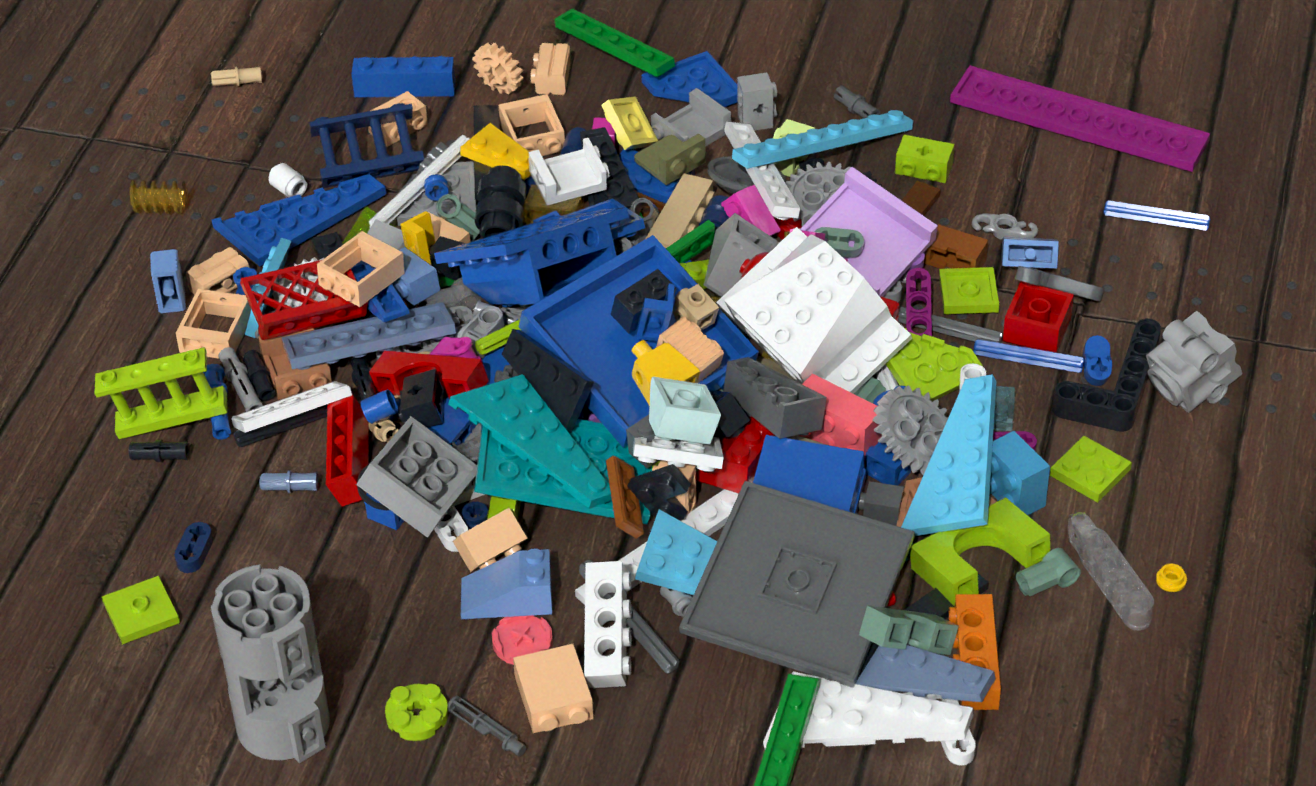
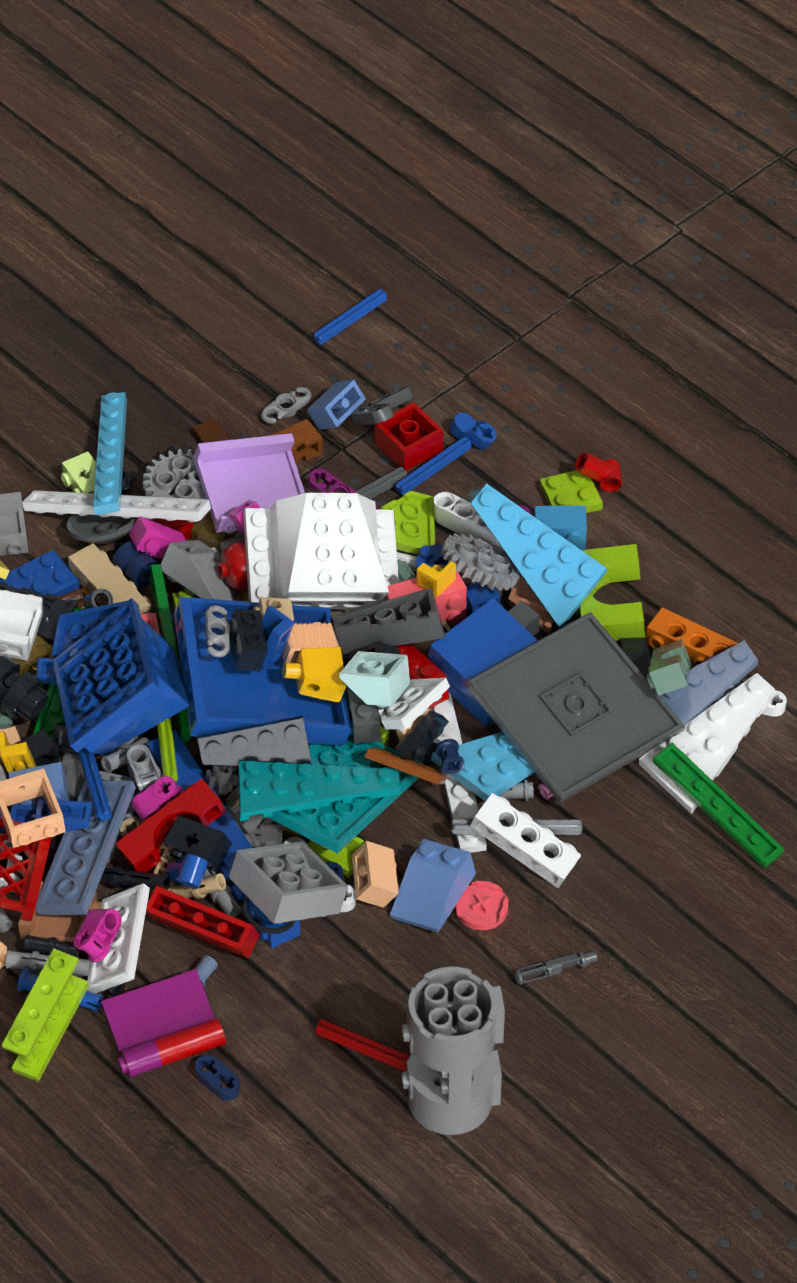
camera: 60 degrees left, 5 degrees up
(140, 609) = (259, 1143): lime plate -> none
(158, 450) = (96, 1042): black pin -> none
(222, 481) = (162, 1023): none -> magenta door
(275, 389) = (97, 932): none -> dark pink piece
(411, 697) = (522, 999): lime plate -> none
(432, 306) = (95, 785): none -> blue axle
(553, 688) = (553, 907): light nougat brick -> none
(643, 269) = (213, 622): none -> light grey piece
(655, 517) = (449, 756): none -> dark blue bush
(671, 157) = (43, 556): olive bracket -> none
(755, 100) = (23, 469): light grey brick -> none
(839, 240) = (247, 494): sand green beam -> none
(849, 403) = (436, 577): none -> yellow panel
(855, 103) = (69, 415): dark grey pin -> none
(924, 158) = (174, 409): lime brick -> none
(968, 290) = (340, 459): lime plate -> none
(1053, 570) = (655, 567): sand green piece -> none
(1081, 118) = (206, 299): magenta plate -> none
(1109, 408) = (526, 439): black beam -> none
(1111, 572) = (679, 535): clear piece -> none
(1135, 477) = (603, 471): none -> red piece
(1171, 578) = (707, 508): yellow plate -> none
(1193, 363) = (536, 378): light grey piece -> none

